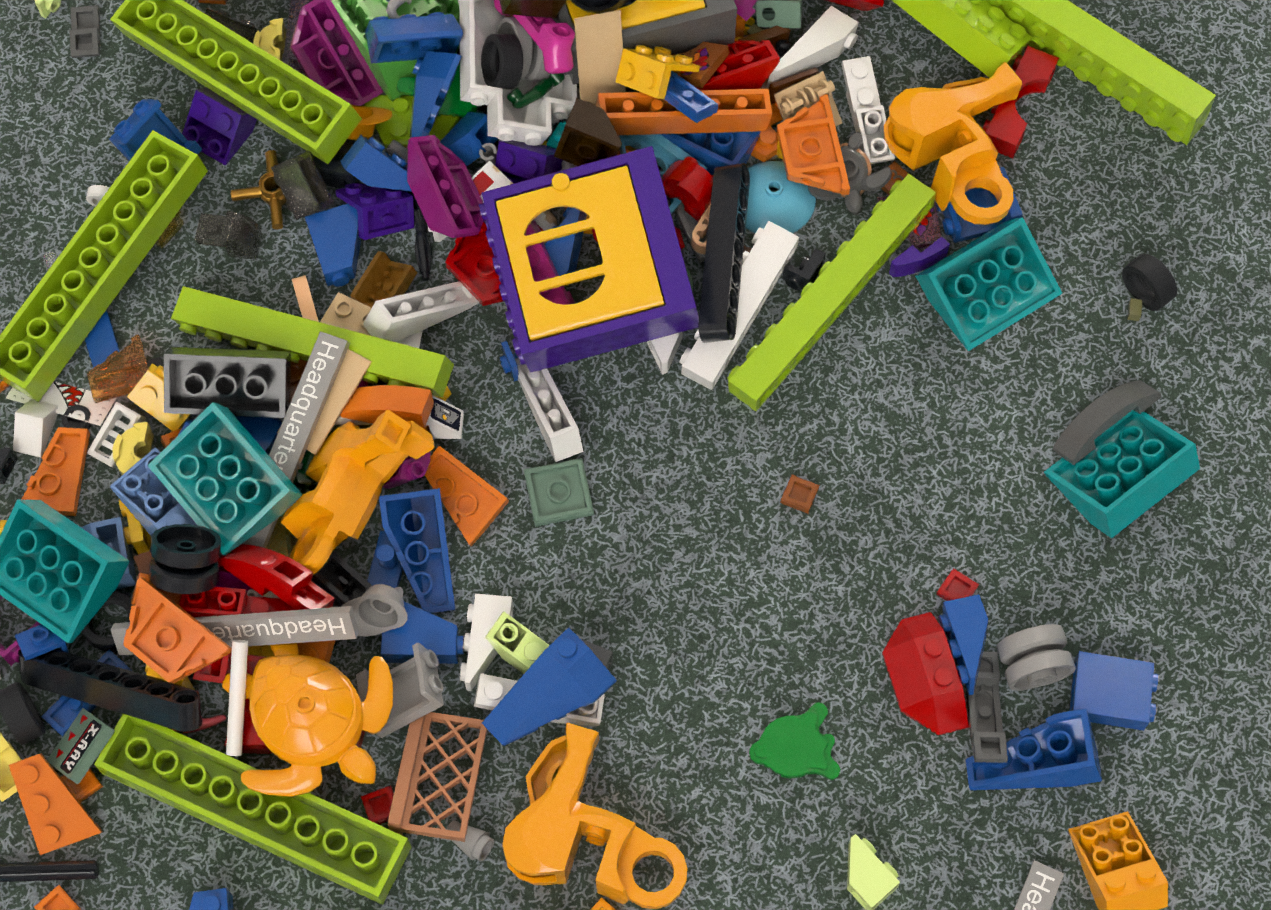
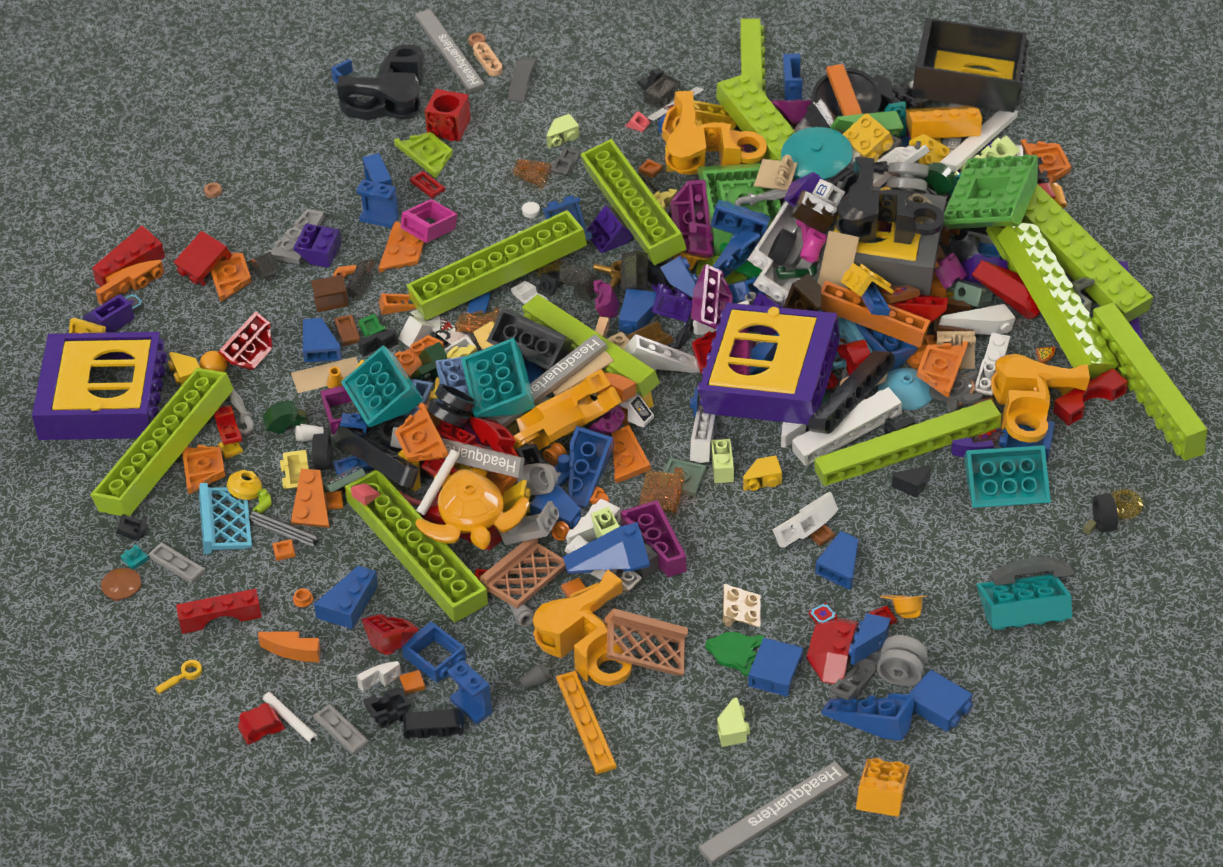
camera: 30 degrees right, 20 degrees down
(45, 69) = (532, 171): none -> clear orange wing
(81, 137) = (531, 209): none -> white tile
(97, 472) = (428, 358): none -> dark green brick
(134, 765) = (364, 493): none -> coral slope
(161, 285) = (525, 292): none -> white slope
(183, 249) = (549, 282): none -> black bracket
(289, 248) = (607, 302): none -> magenta cylinder
(355, 655) = (514, 493): none -> yellow slope
(362, 90) = (699, 240): none -> magenta cylinder
(362, 547) = (551, 455): none -> orange wheel
(448, 672) = (560, 530): none -> orange plate
(464, 584) = (597, 495): none -> orange tile
(519, 759) = (572, 587): none -> orange tile
(548, 533) = (664, 488): none -> clear orange bracket
(570, 602) = (658, 535): none -> magenta wedge
(603, 442) = (722, 461): none -> yellowish green slope
(665, 790) = (646, 628): none -> nougat fence
(670, 433) = (762, 474): none -> yellow slope
(764, 671) = (740, 606): none -> tan hinge
(778, 485) = (807, 521): none -> white slope
(854, 528) = (839, 560): none -> blue slope
(870, 747) = (775, 666): none -> blue panel
(871, 350) = (911, 480): none -> black slope
(878, 626) = (822, 614): none -> red tile
(920, 59) = (1045, 354): none -> tile
(978, 553) = (906, 606): none -> light orange piece
(1140, 245) = (1127, 508): none -> clear yellow piece

